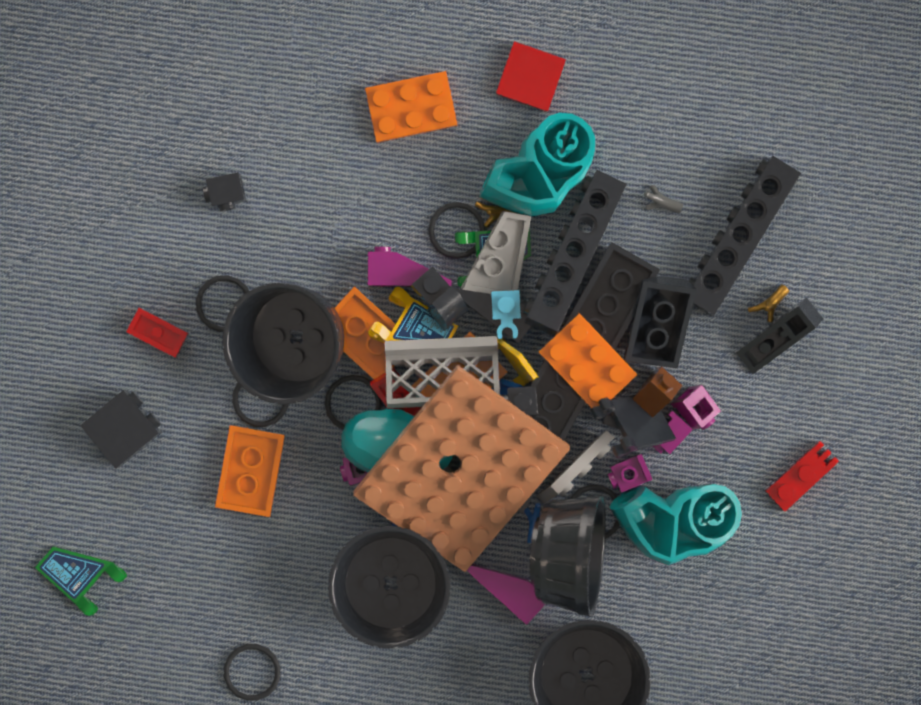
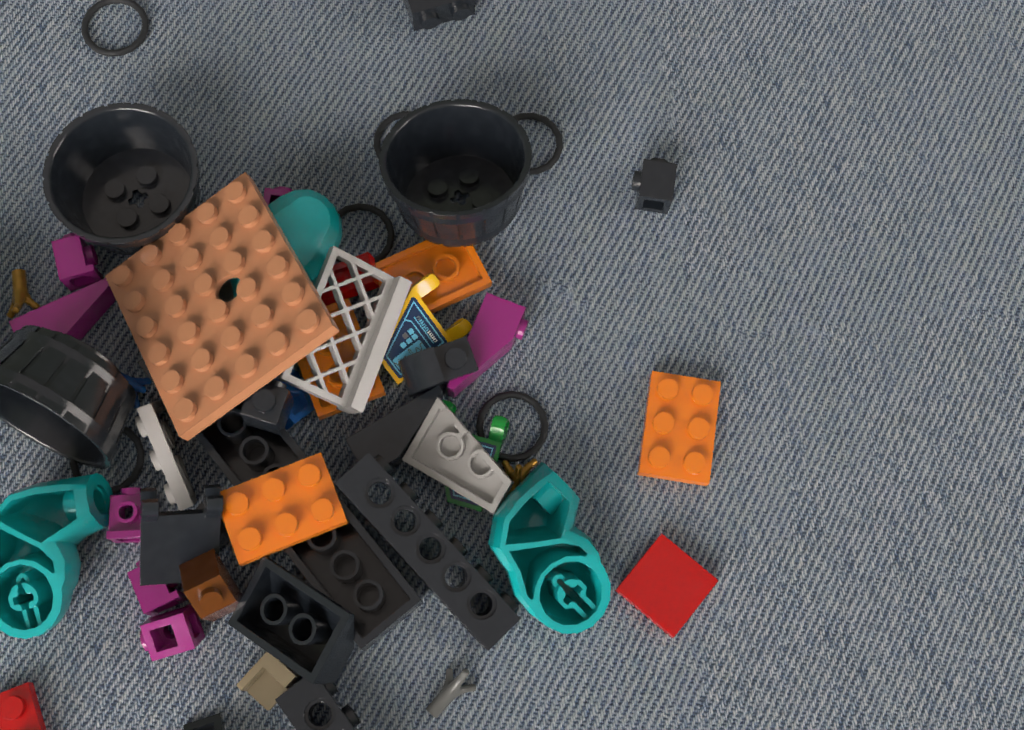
camera: 105 degrees right, 15 degrees down
(157, 332) = (524, 62): red plate -> none
(250, 471) = (331, 99): orange plate -> none
(461, 603) = (75, 262): none -> magenta brick
(499, 634) = (20, 293): none -> pearl gold bar
(506, 307) = (393, 439): medium azure plate -> none
(519, 363) = (302, 429): yellow flag -> none
(703, 327) = (268, 680): none -> dark tan panel

